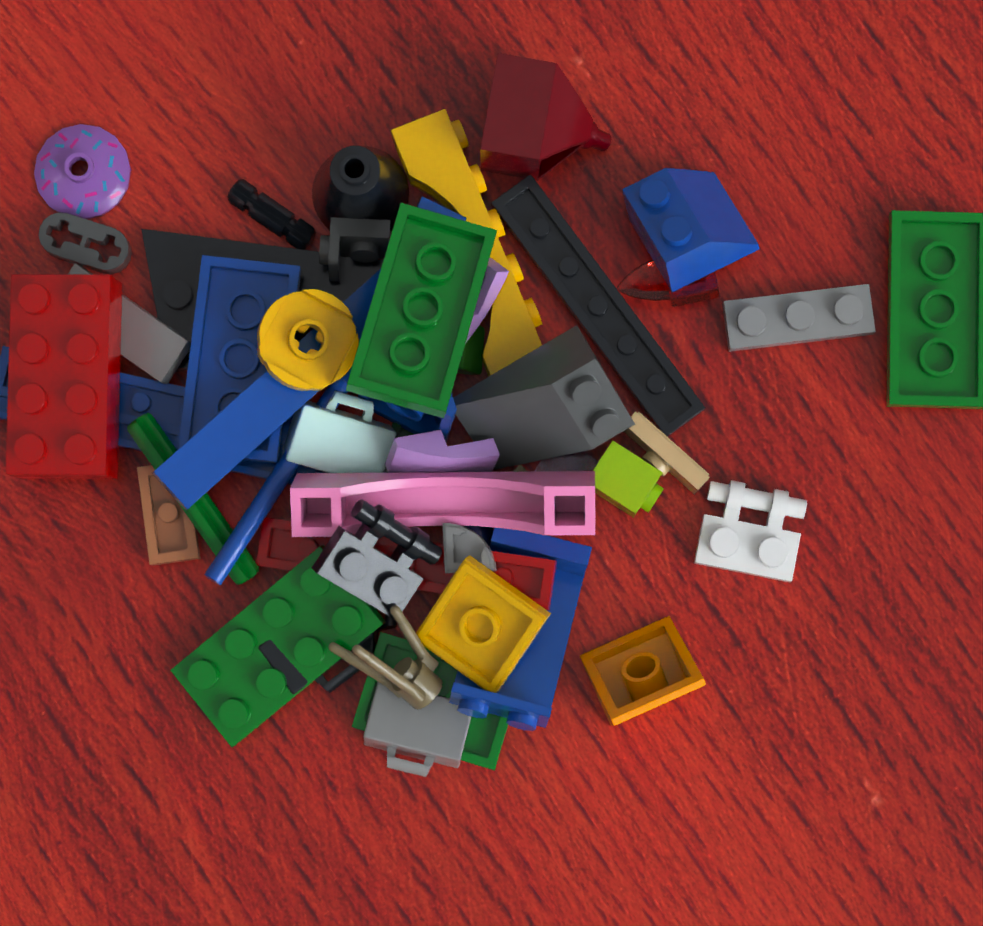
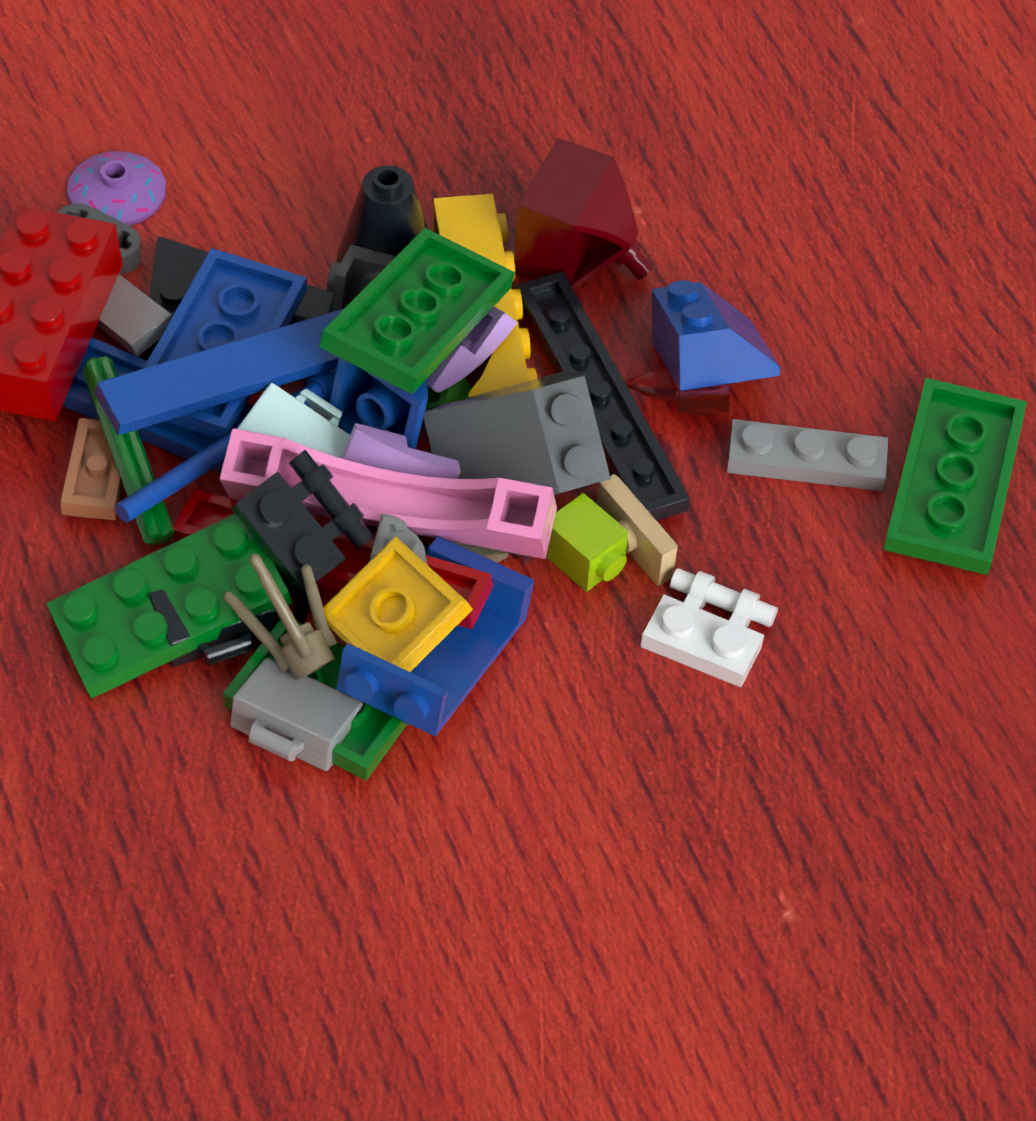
camera: 10 degrees right, 30 degrees down
(271, 214) = (289, 253): black axle -> none
(280, 350) = (276, 338): yellow plate -> none
(641, 671) = (558, 728): light orange slope -> none

